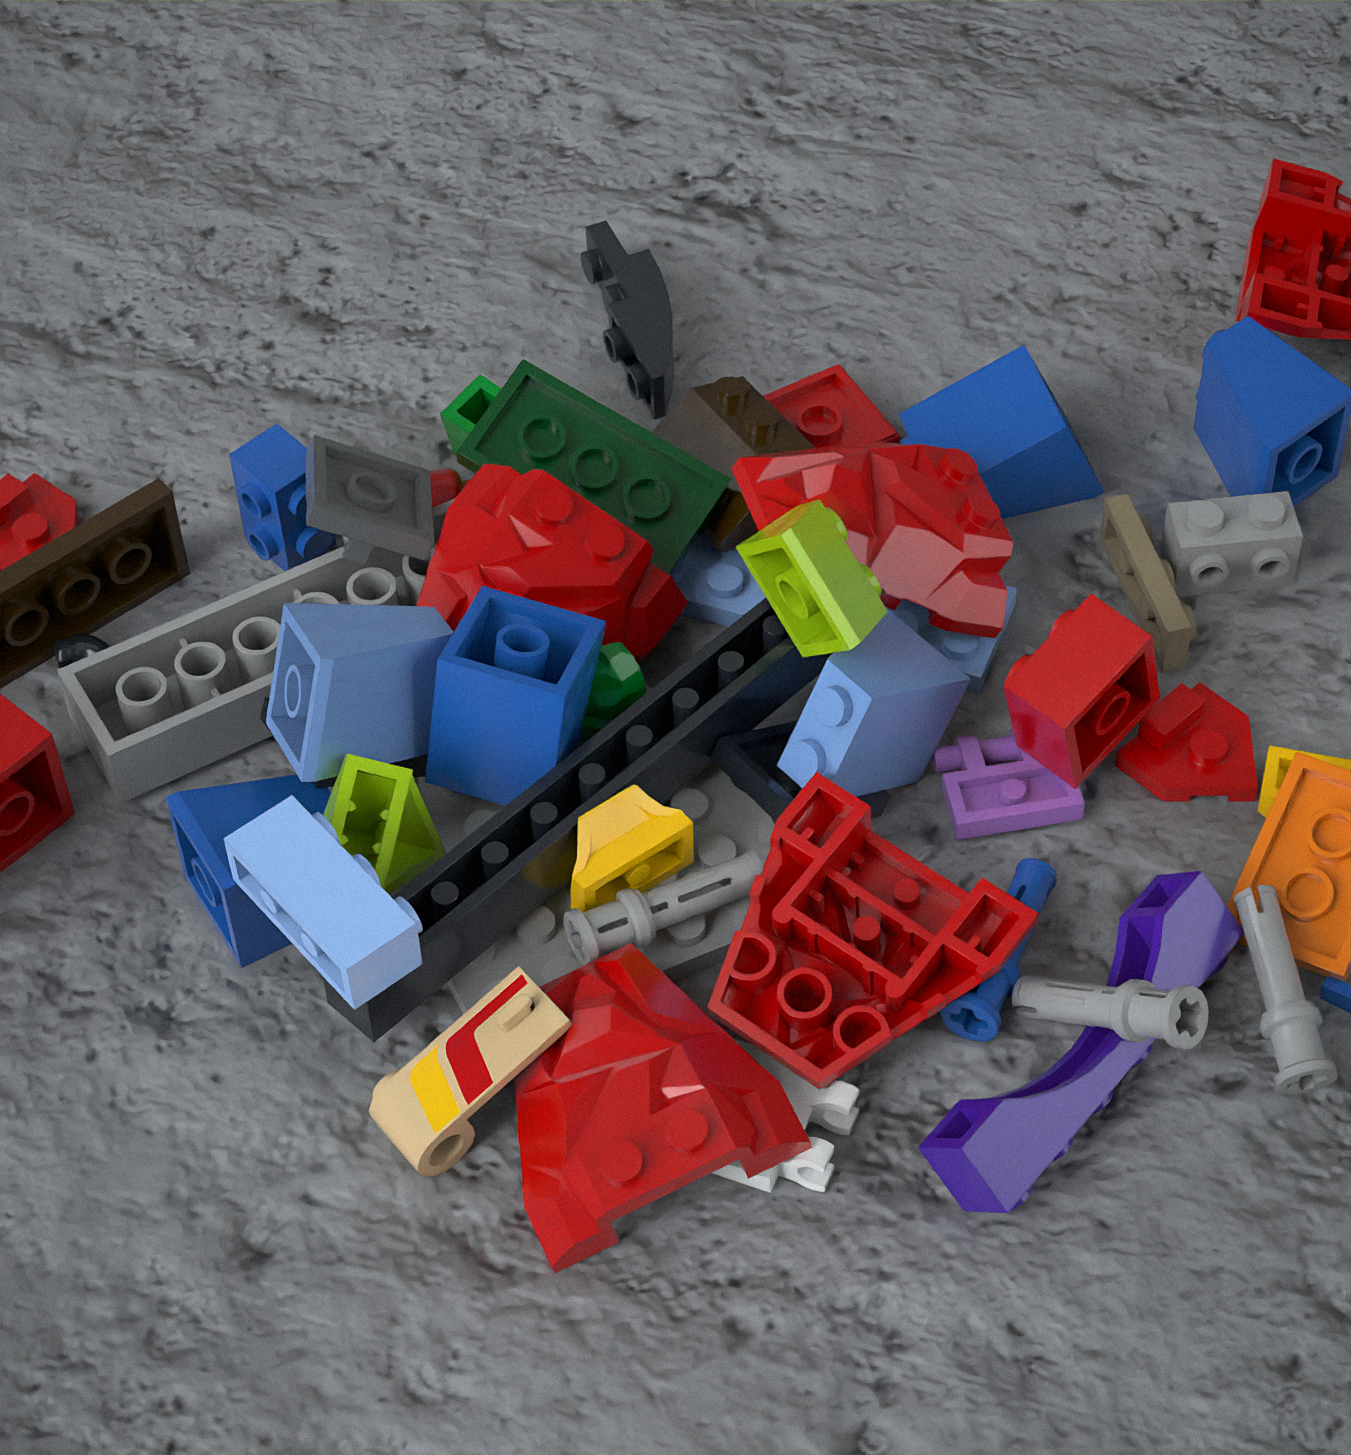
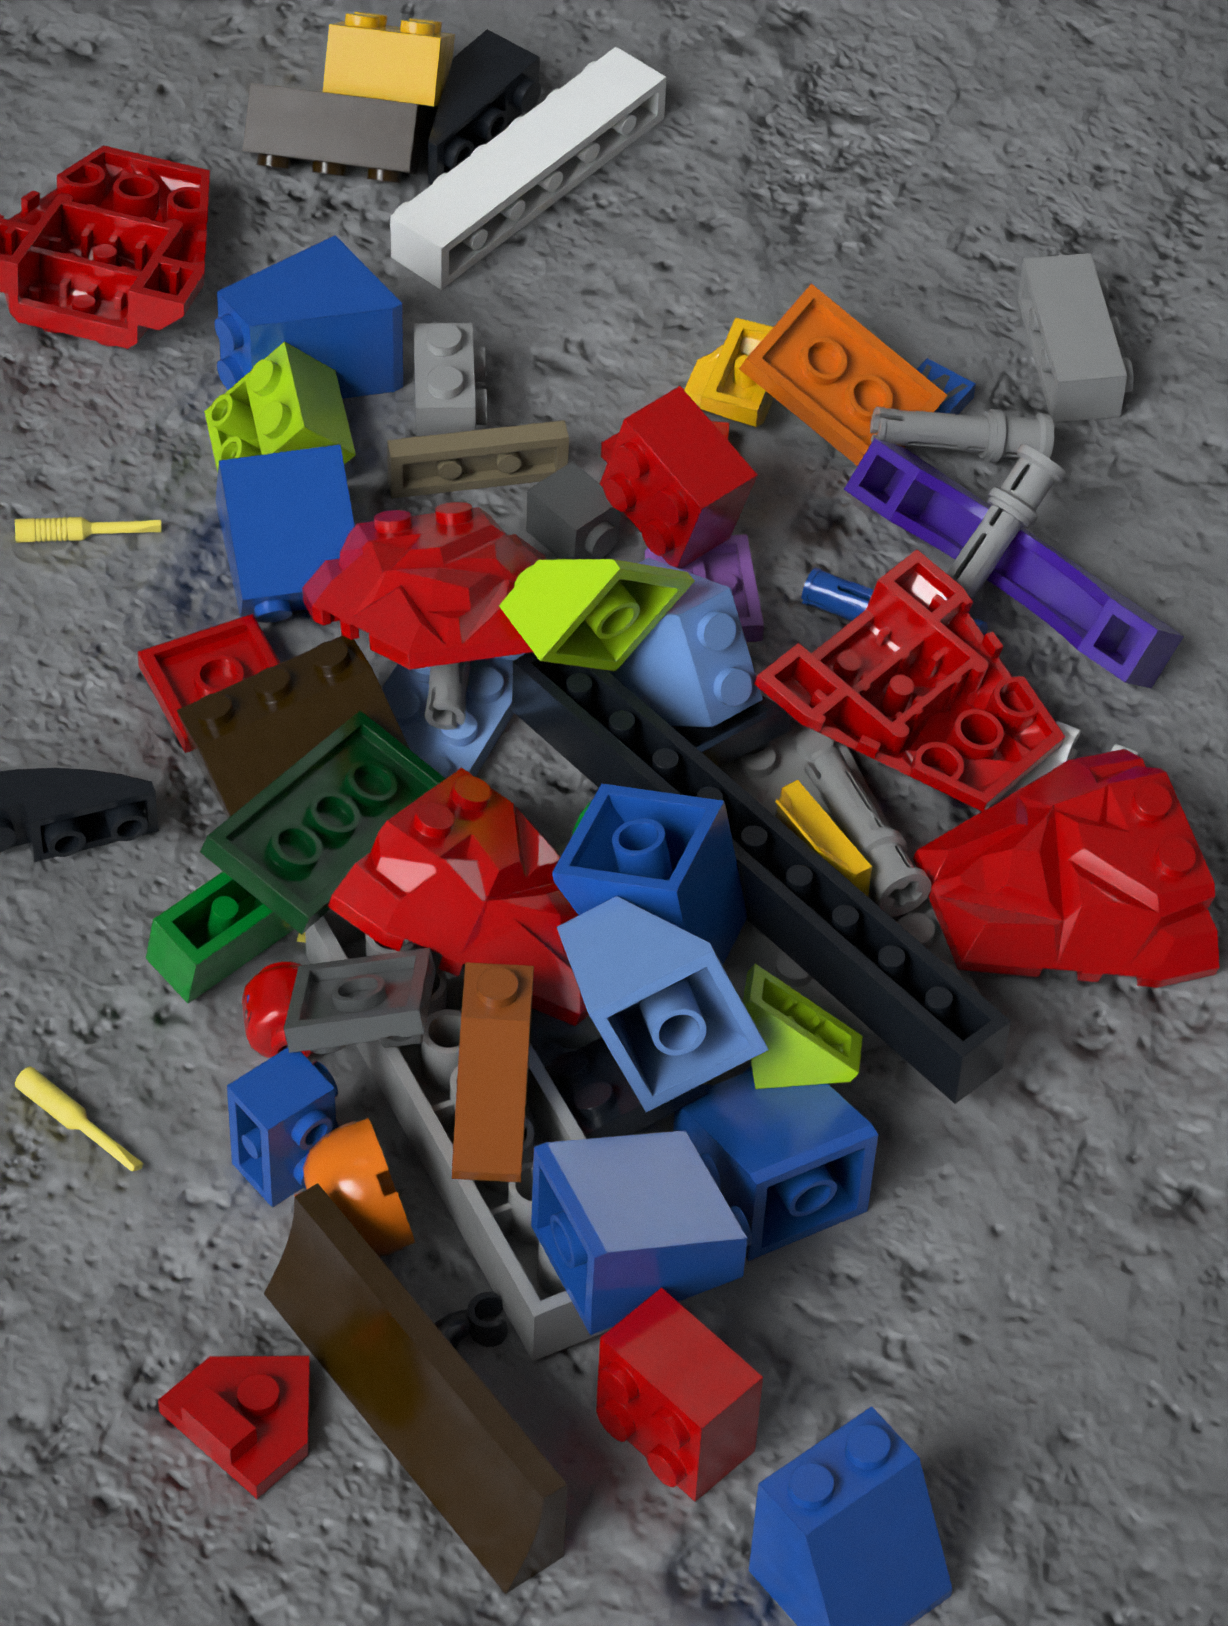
camera: 90 degrees left, 0 degrees up
(112, 696) = (634, 1219): none -> blue slope
(216, 555) = (358, 1181): none -> orange cylinder
(251, 608) = (493, 1072): none -> dark orange slope
(325, 900) = (923, 1029): light blue brick -> none
(336, 389) = (70, 1113): none -> light yellow piece
(436, 1092) = (1069, 1017): tan door -> none
(996, 307) = (75, 528): none -> light yellow piece
(1152, 433) = (280, 407): none -> lime slope

